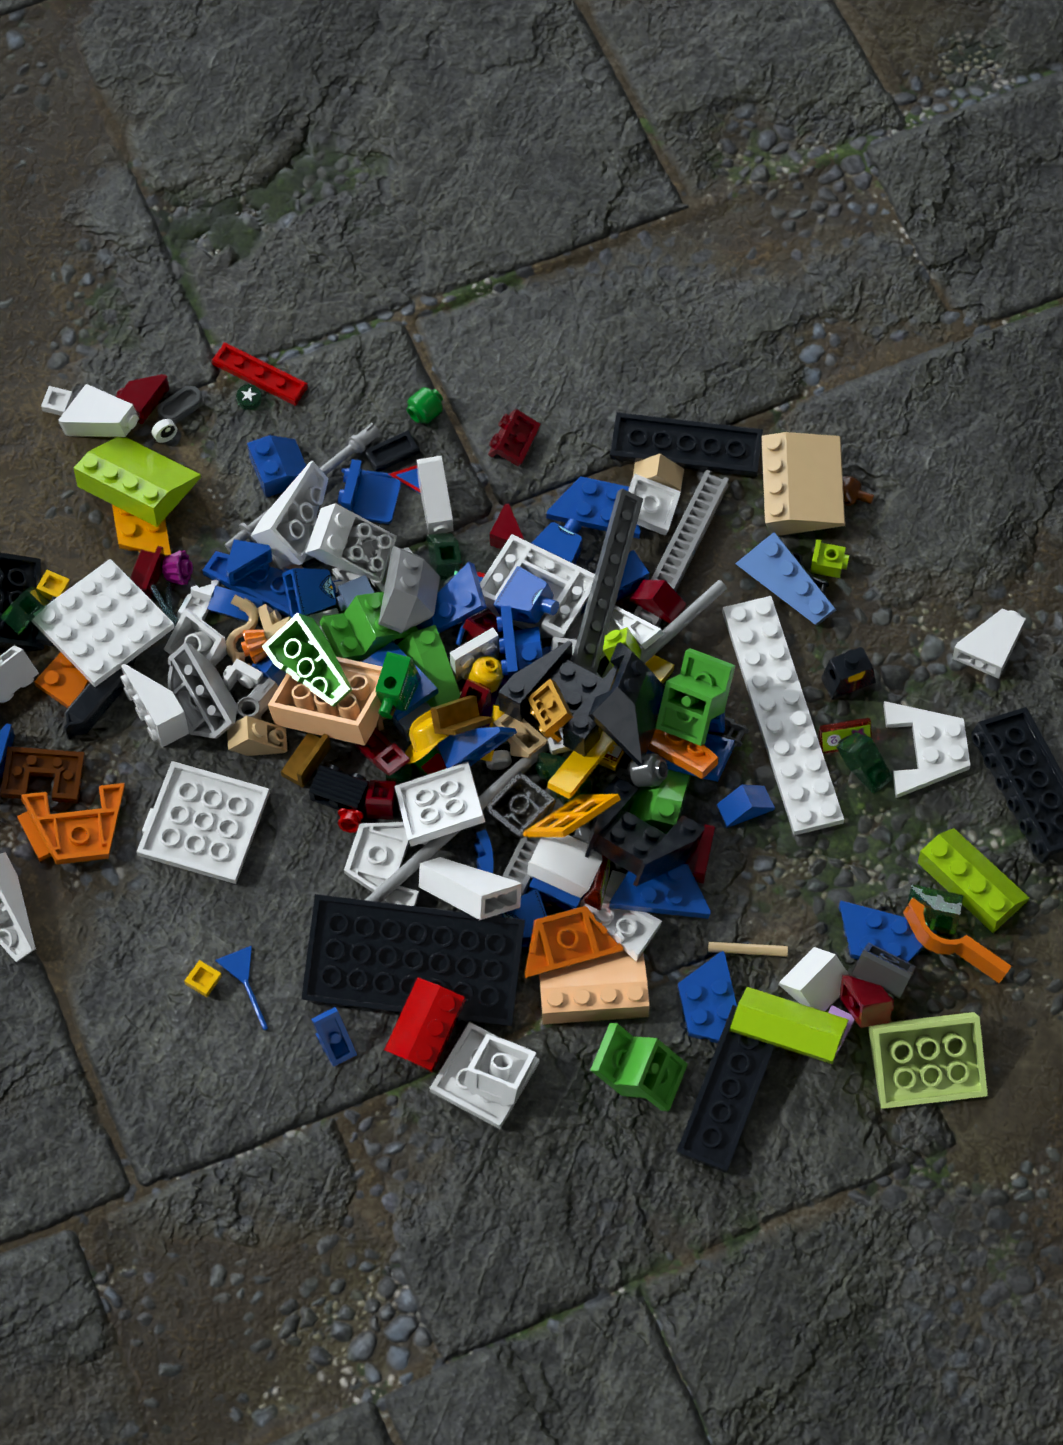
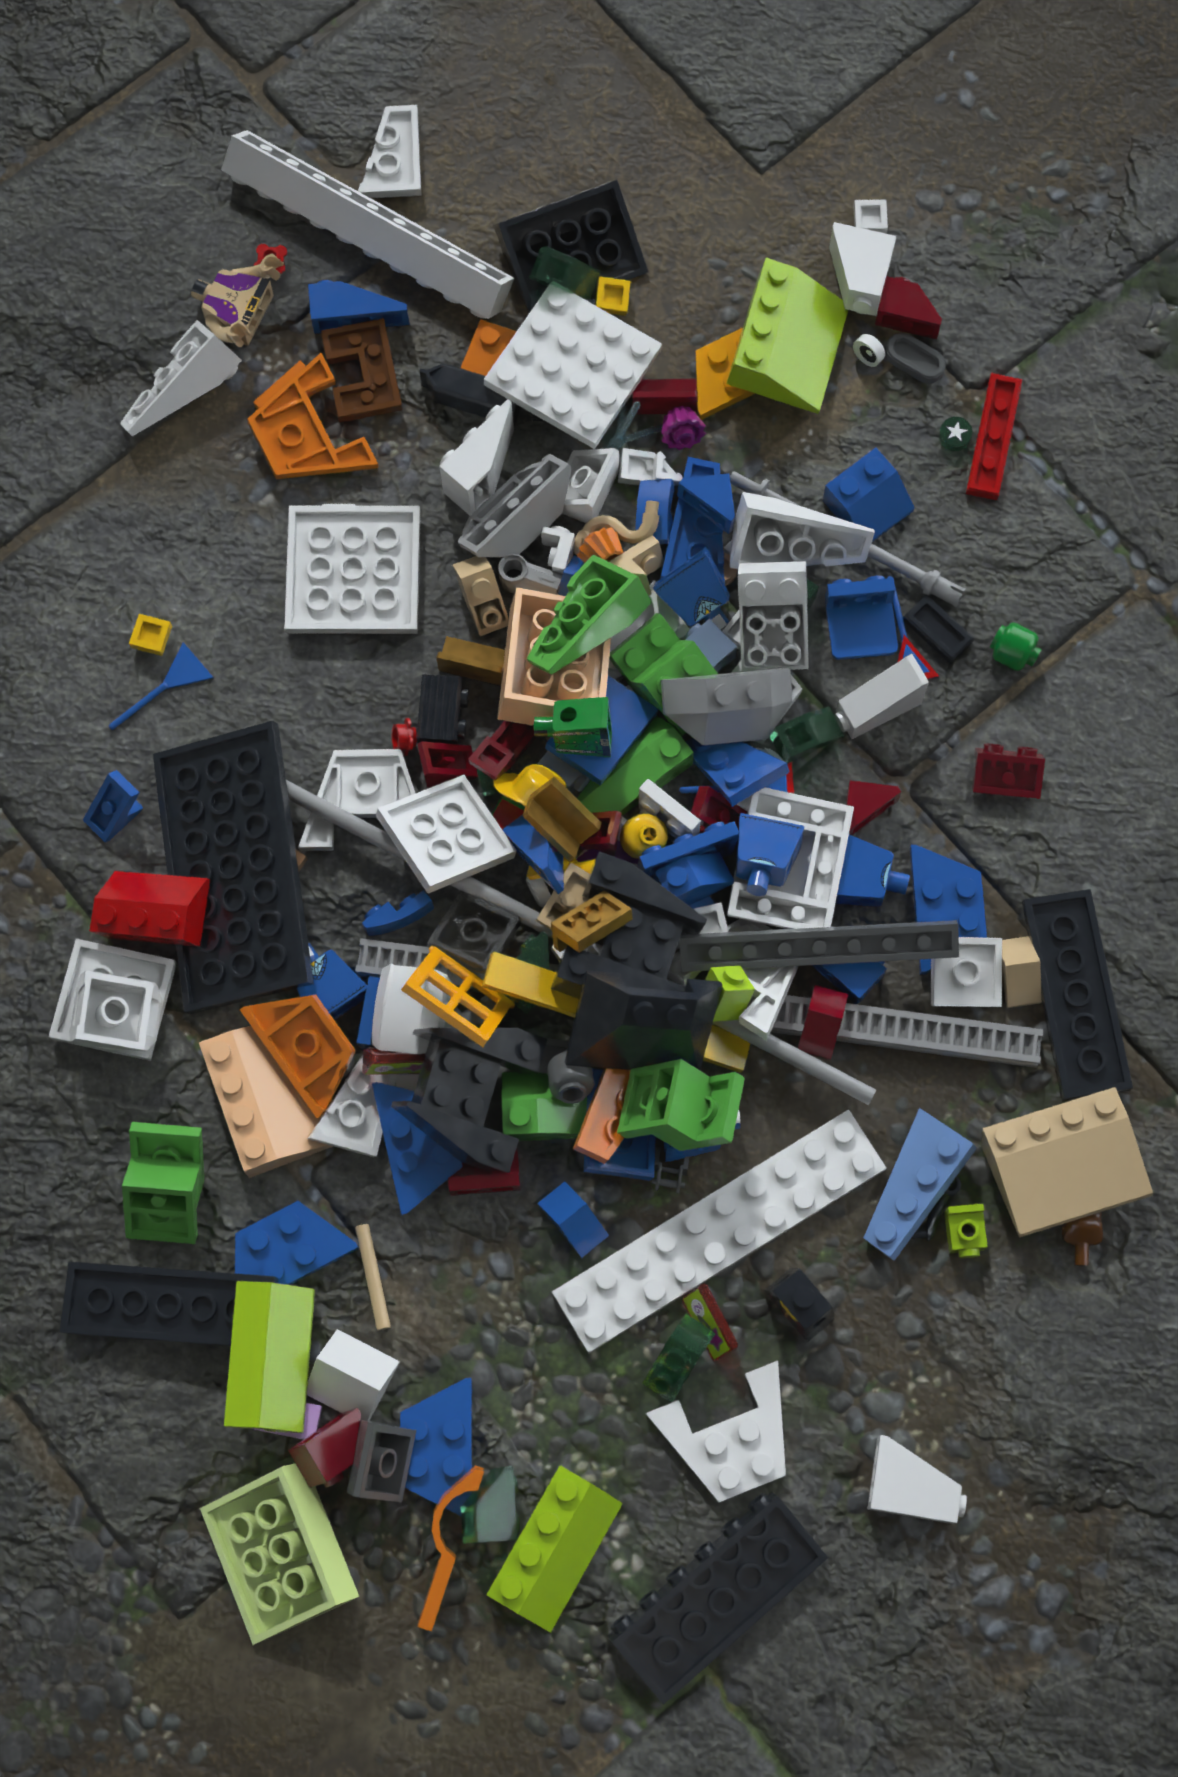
camera: 75 degrees right, 10 degrees up
(469, 888) = (337, 904): white slope -> none

